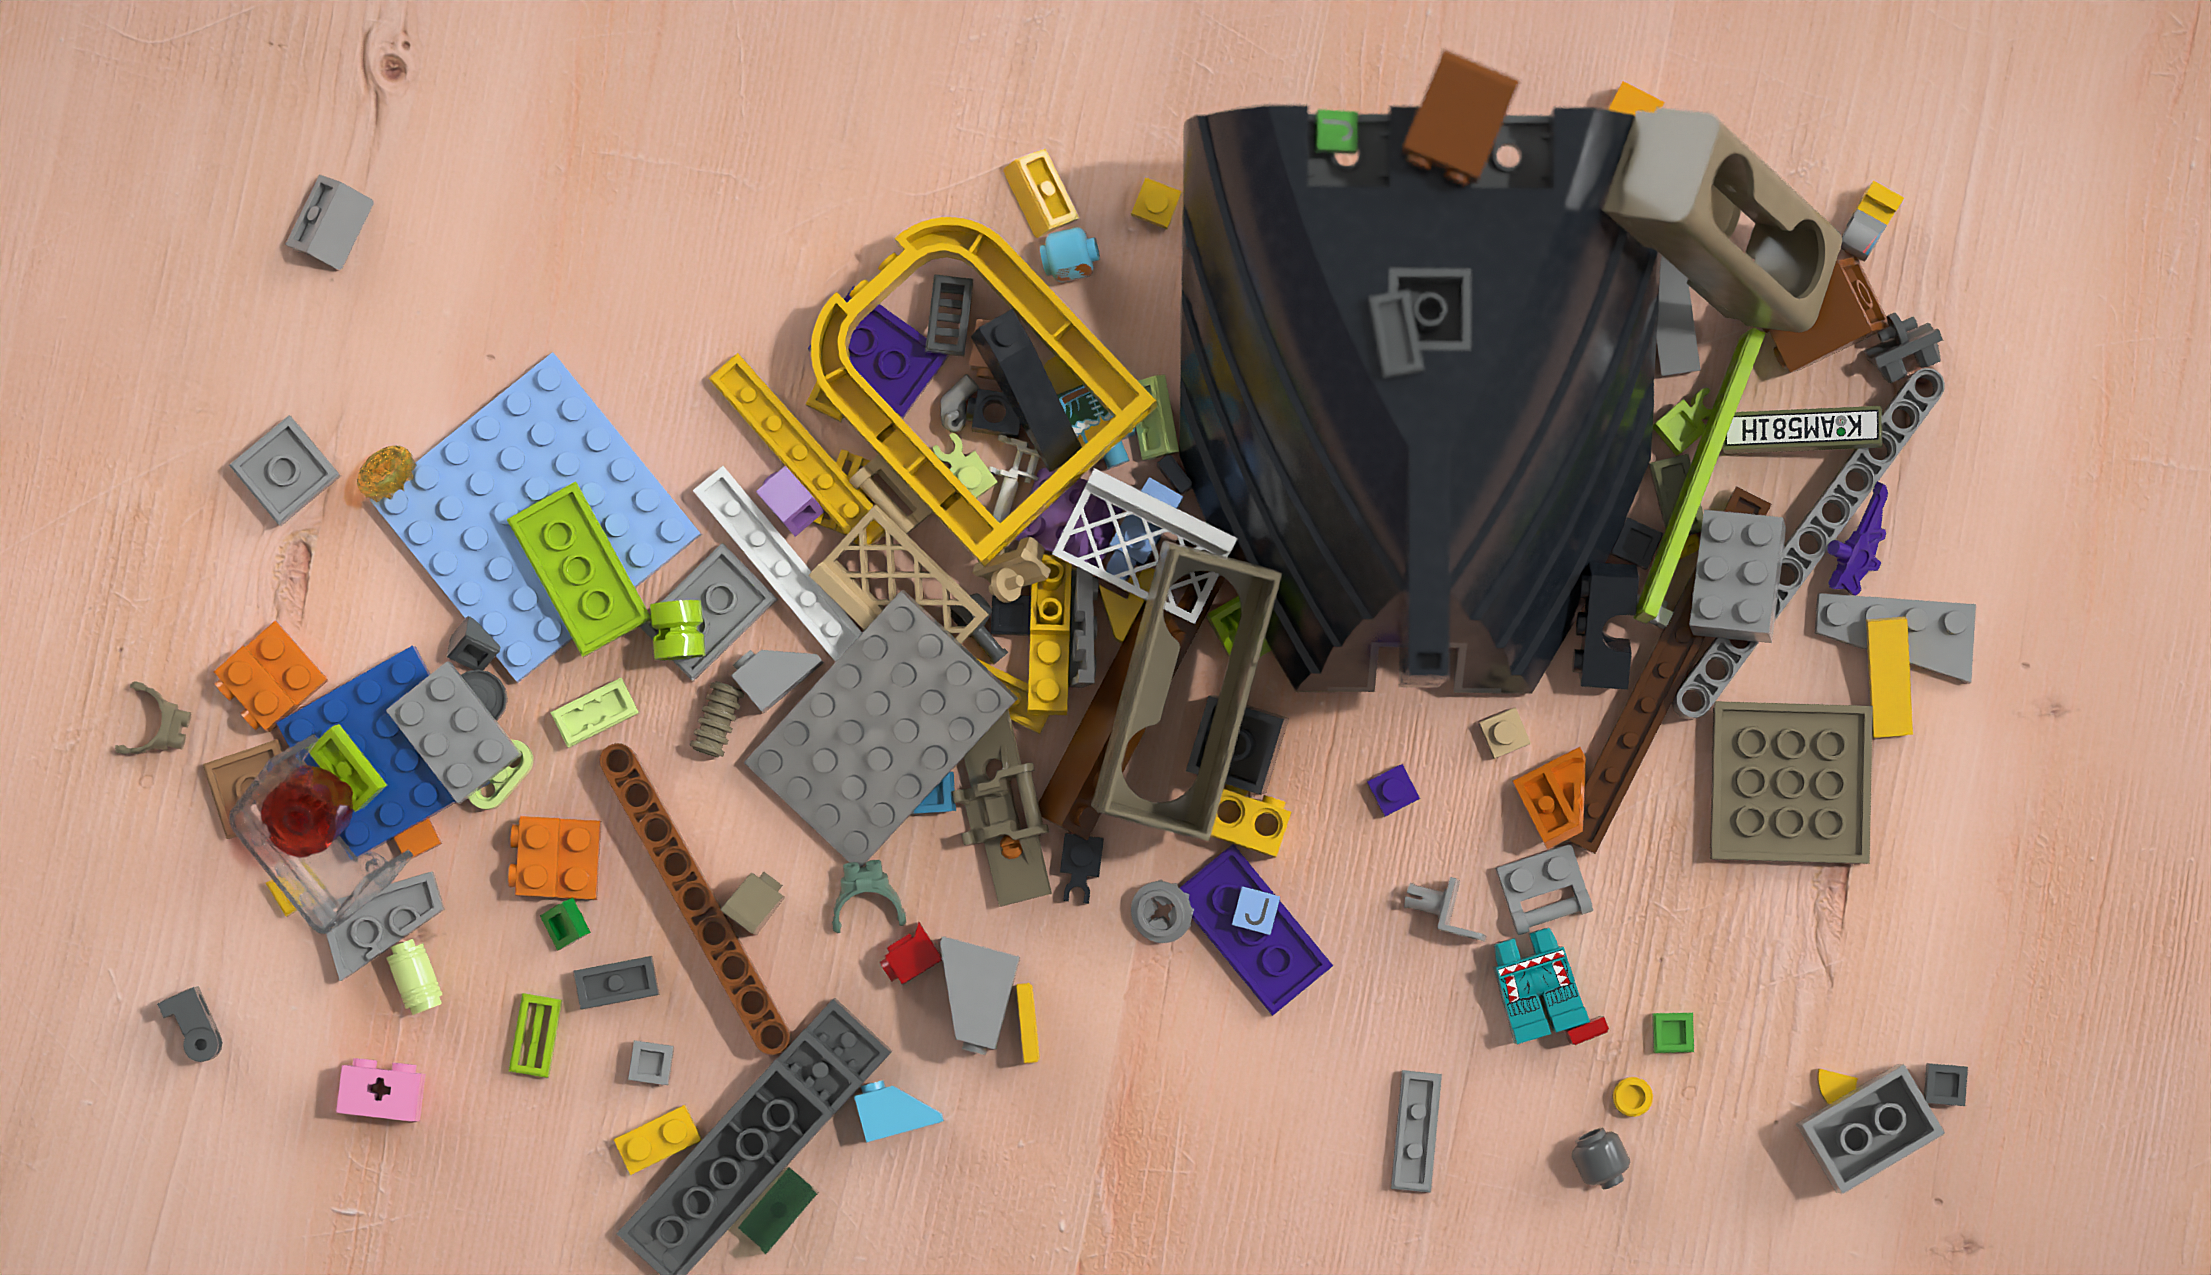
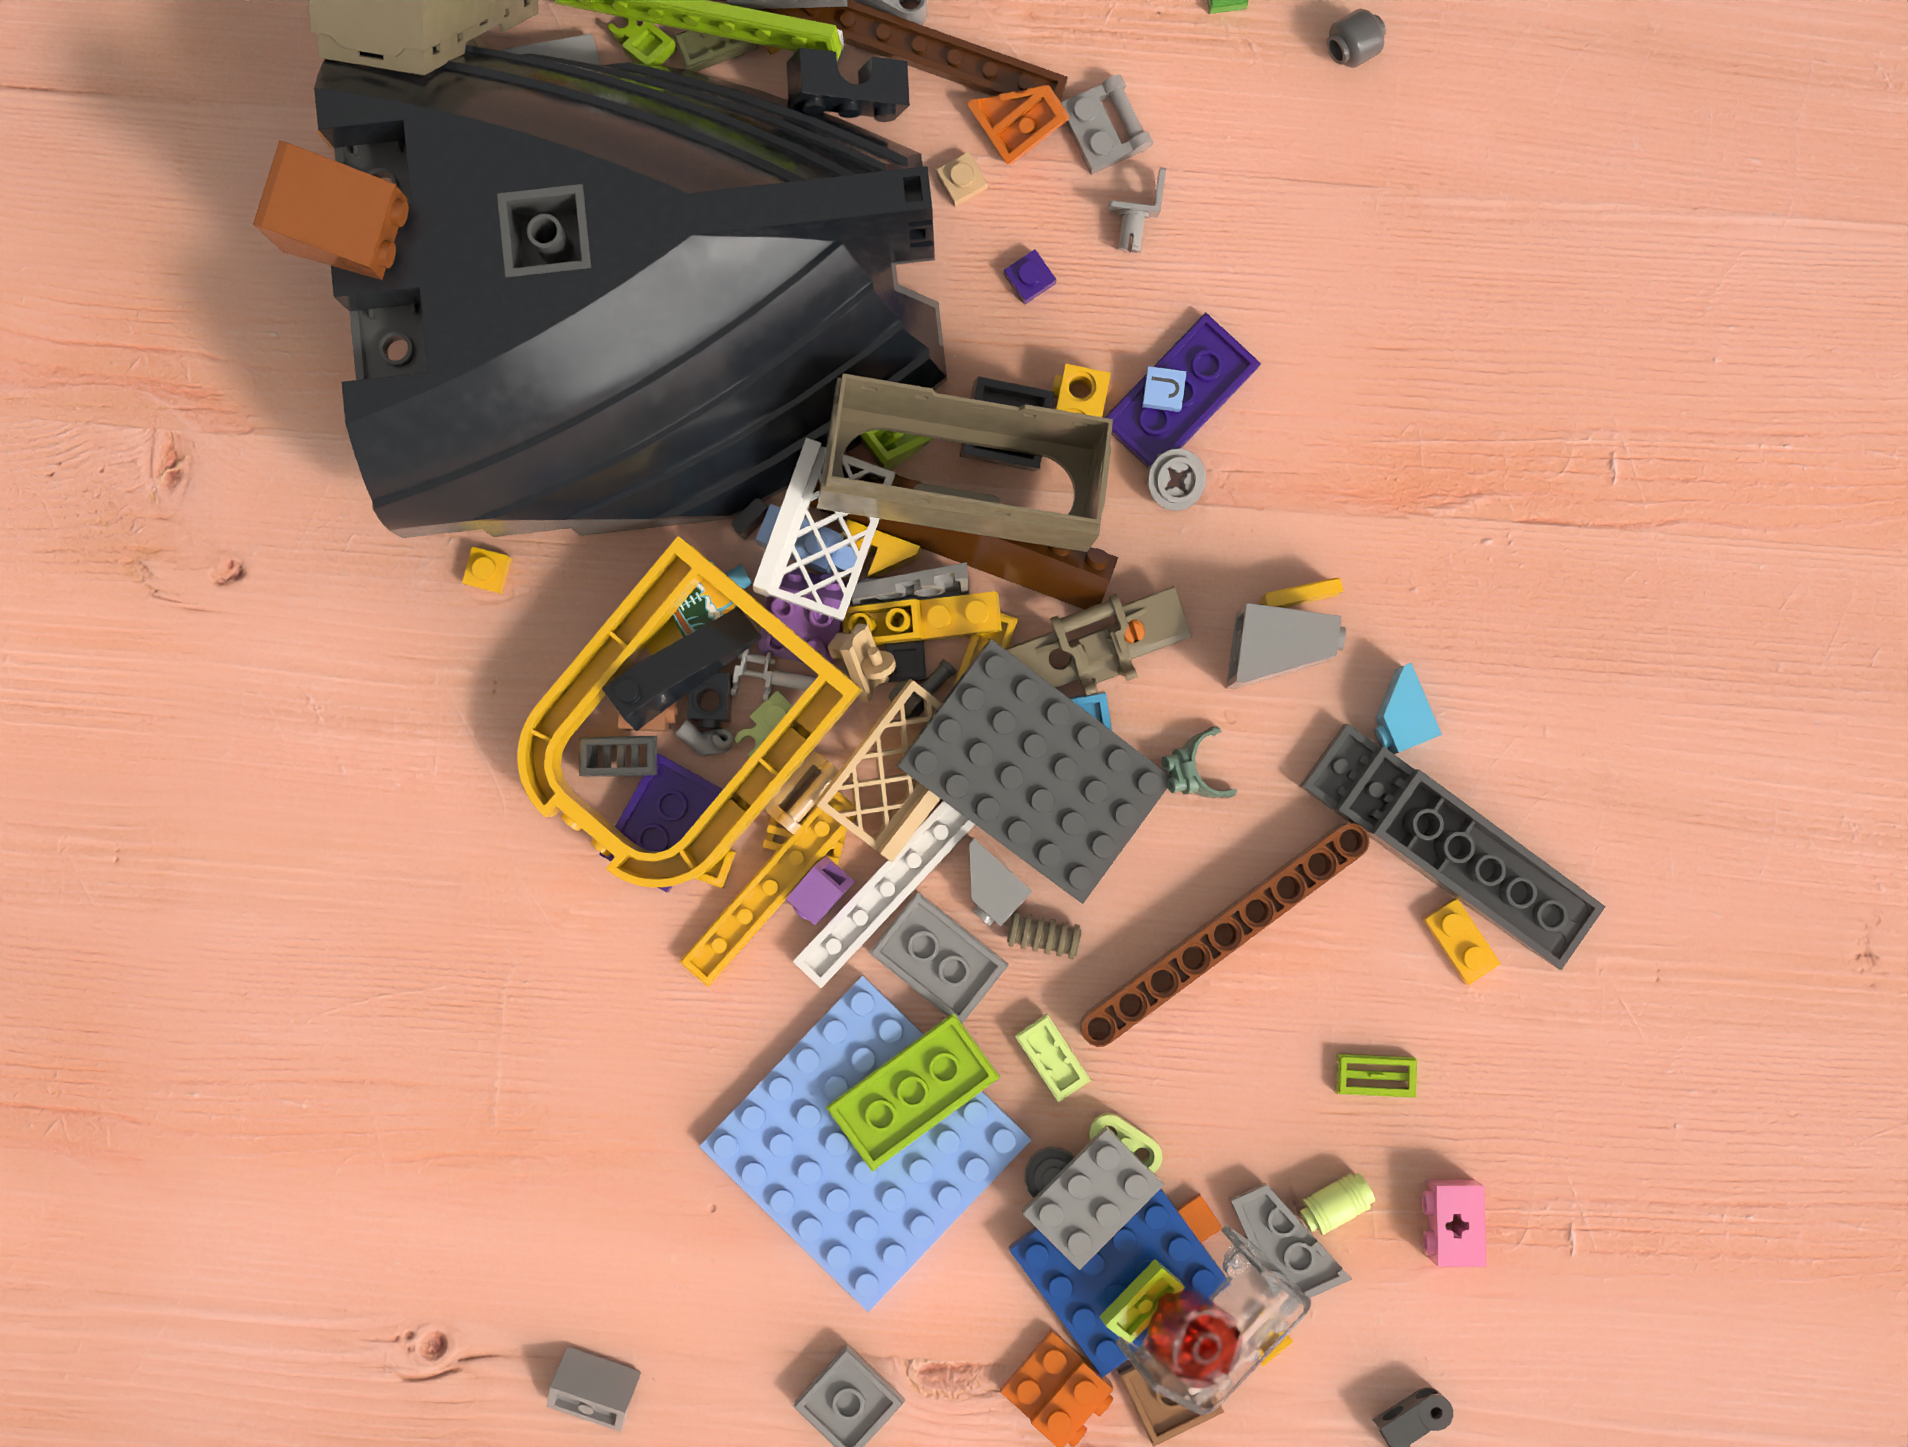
camera: 90 degrees left, 0 degrees up
(382, 463) = (827, 1295): clear yellow gear -> none
(472, 645) = (1001, 1189): dark grey slope -> none
(555, 857) = (1200, 1078): orange plate -> none
(565, 924) = (1265, 1060): green plate -> none
(616, 982) = (1315, 1002): dark grey plate -> none
(651, 1062) = (1389, 957): light grey plate -> none
(677, 630) = (962, 985): lime wheel -> none
(754, 902) = (1222, 875): dark tan slope -> none
(778, 1210) = (1516, 812): clear green panel -> none
(910, 956) = (1252, 716): red window -> none
(1040, 193) = (489, 684): yellow slope -> none
(1069, 255) = (545, 646): medium azure head -> none
(1081, 860) = (1136, 565): black plate -> none
(1157, 430) = (711, 539): yellowish green plate -> none
(1336, 131) = (371, 356): bright green tile -> none
(1395, 334) = (573, 260): dark grey tile -> none
(1416, 1131) = (1351, 217): light grey tile -> none
(1536, 975) = (1203, 116): teal hips -> none
(1587, 1031) = (1236, 66): red tile -> none
(1632, 1096) = (1291, 21): yellow tile -> none
(1636, 543) = (765, 72): black plate -> none

